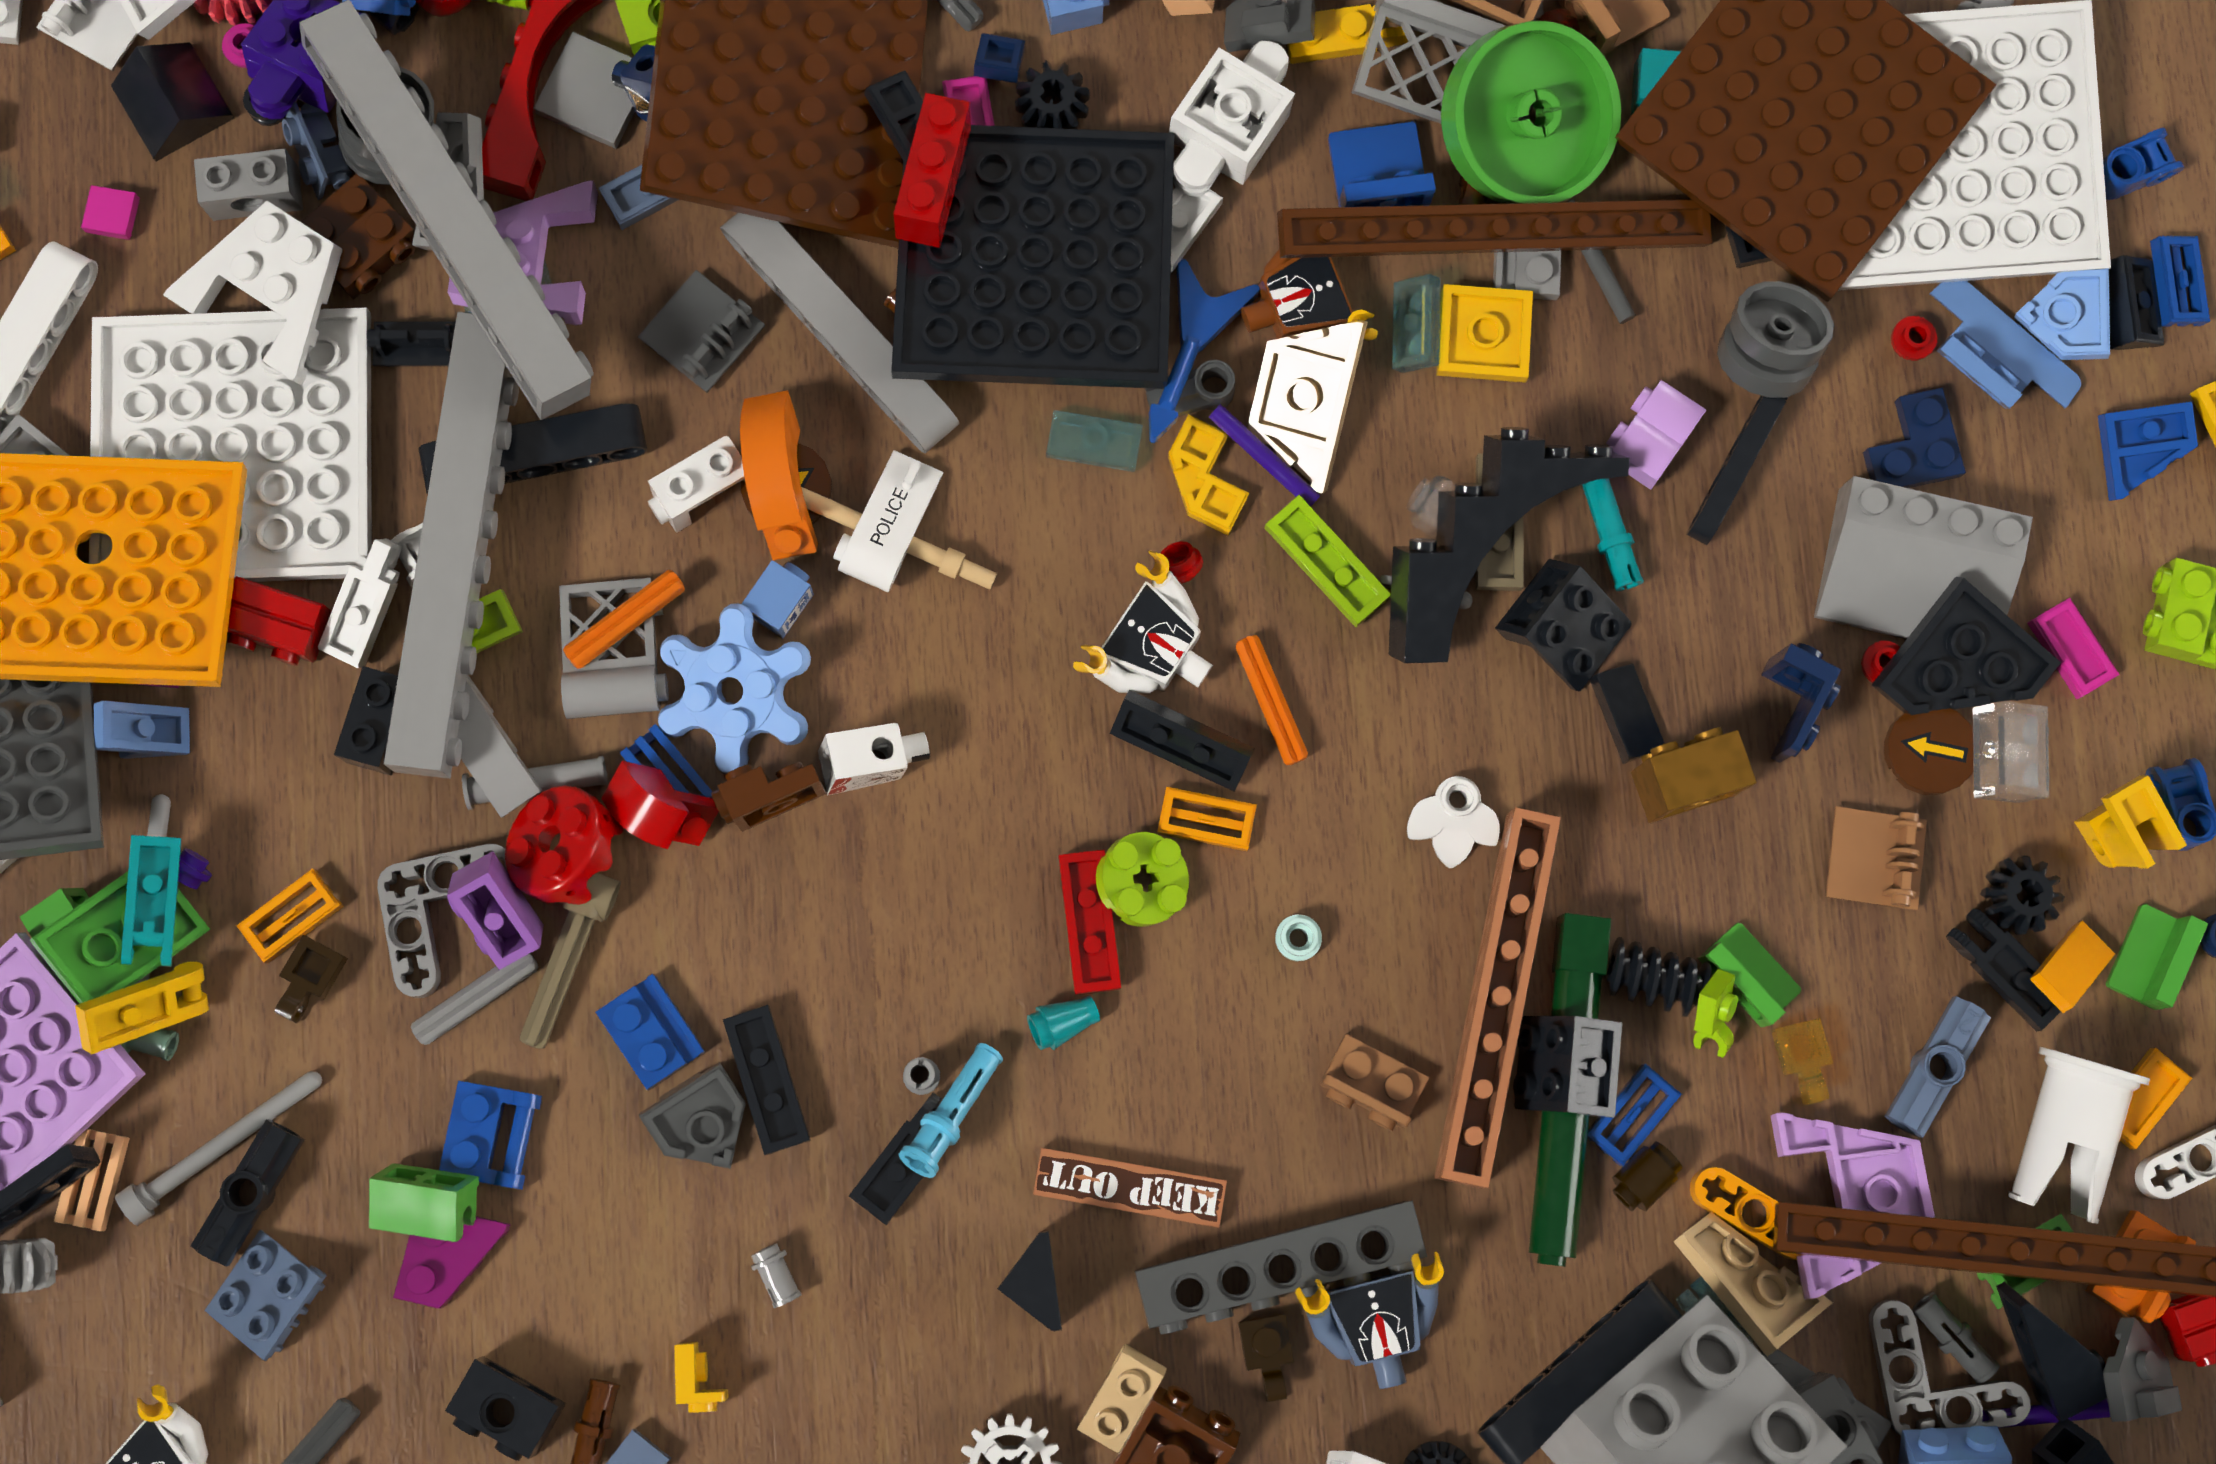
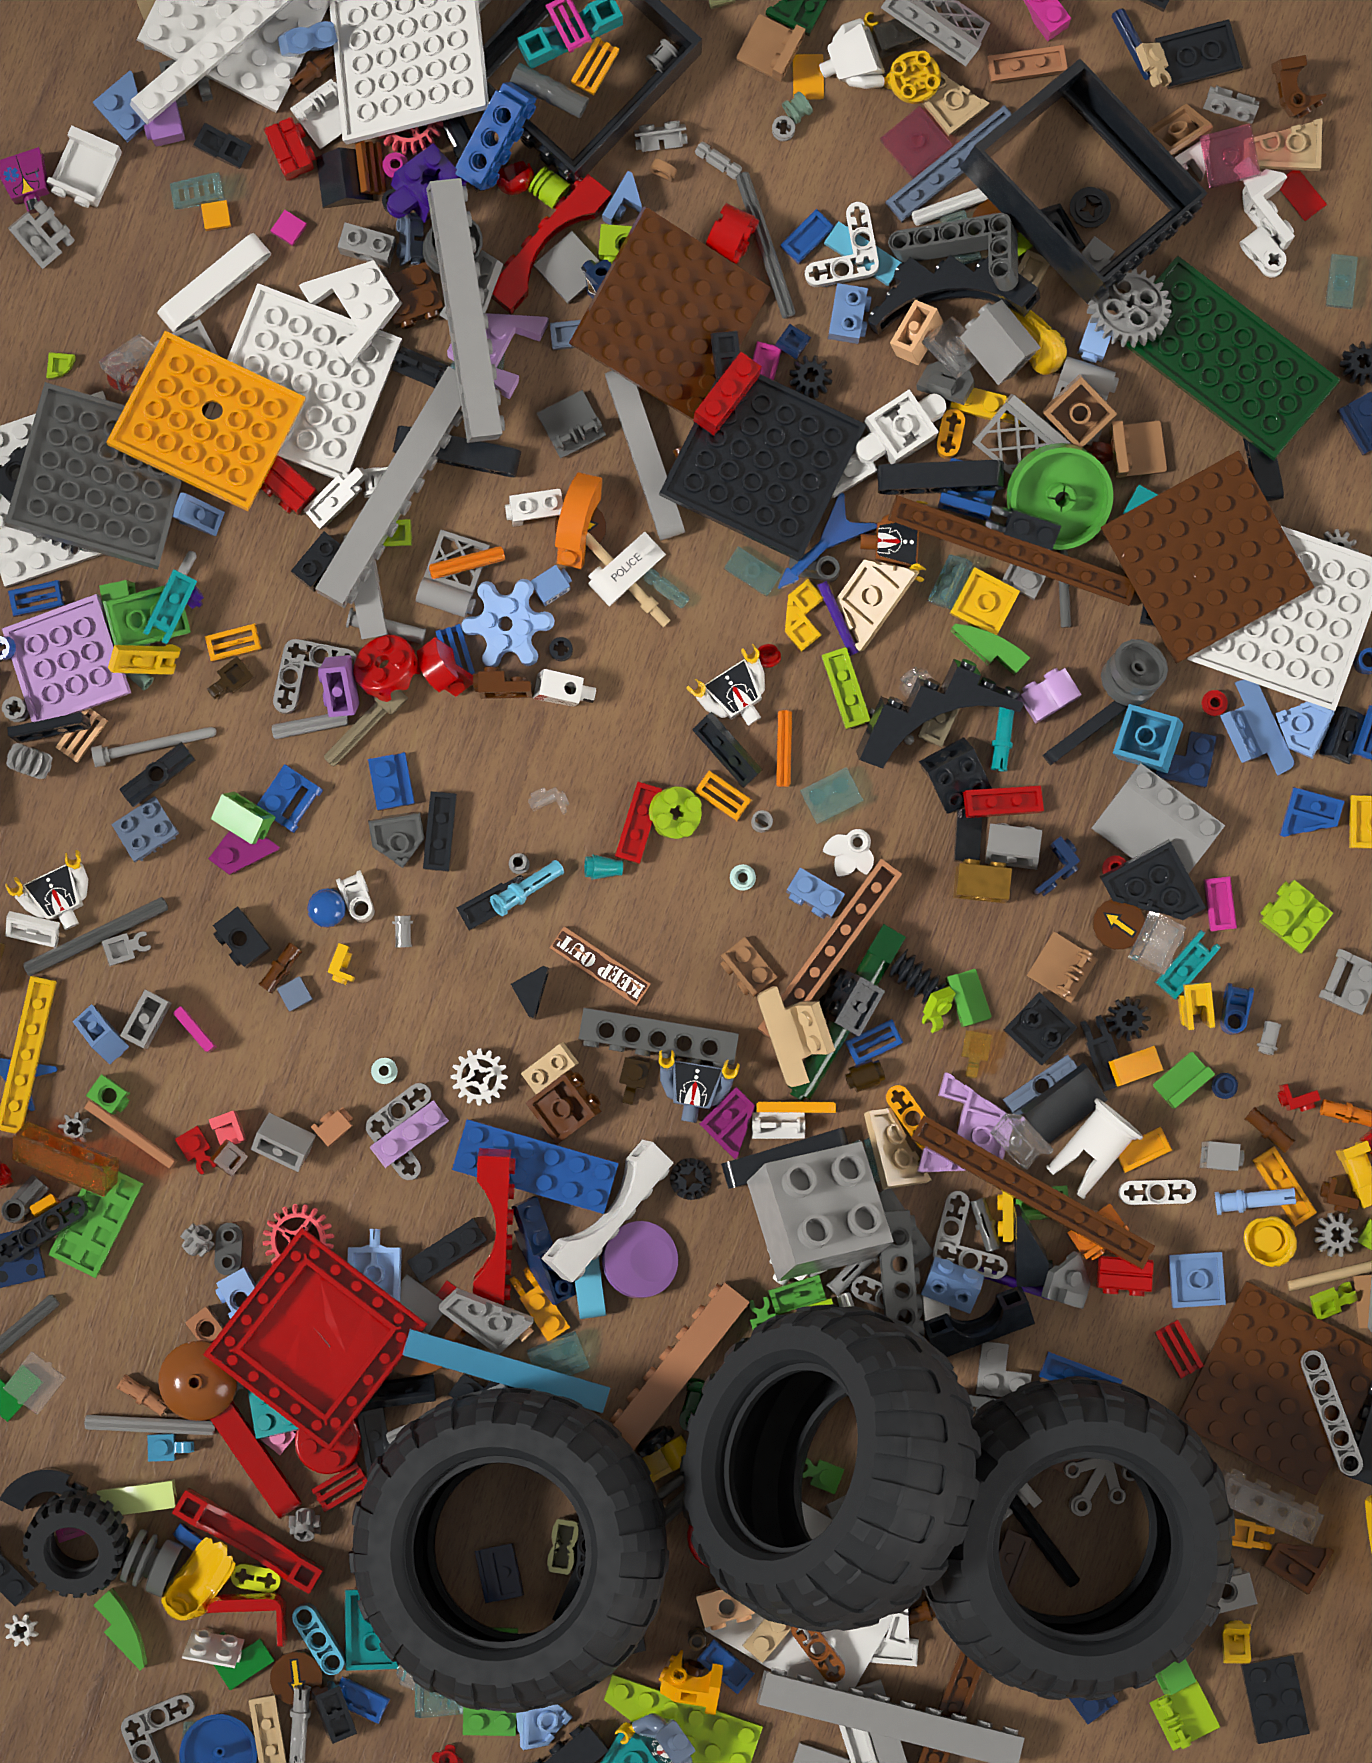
camera: 30 degrees right, 5 degrees up
(59, 87) = (289, 148): none -> red brick
(210, 63) = (373, 169): none -> dark orange tile
(630, 1292) = (326, 908): none -> blue helmet
(670, 1249) = (355, 891): none -> white piece
(846, 683) = (567, 644): none -> black bush
(914, 950) = (543, 798): none -> clear bracket
(968, 525) = (666, 588): none -> clear light blue axle
(1292, 826) = (763, 817): none -> light grey hinge
(1319, 96) = (944, 433): none -> light orange beam
(1328, 164) = (940, 477): none -> black beam
(1382, 742) = (831, 795): none -> clear light blue plate
(1429, 912) = (815, 893): none -> medium blue brick
(1459, 1354) = (730, 1121): none -> magenta wing
(1504, 181) = (1025, 527): none -> black hinge
(1509, 1159) = (794, 1033): none -> tan plate
(1528, 397) = (990, 647): none -> bright green slope
(1542, 1323) = (778, 1125): none -> white hinge
(1558, 1281) = (796, 1107): none -> light orange tile
(1661, 632) = (1003, 801): none -> red plate
(1713, 695) = (1014, 845): none -> light grey brick
(1845, 432) = (1148, 738): none -> dark azure brick
(1890, 974) = (1040, 1028): none -> black plate
(1949, 1170) = (1020, 1139): none -> clear panel
(1990, 1080) = (1064, 1103): none -> black tile
(1991, 1324) = (1006, 1227): none -> yellow hinge
(2072, 769) = (1186, 966): none -> teal hinge

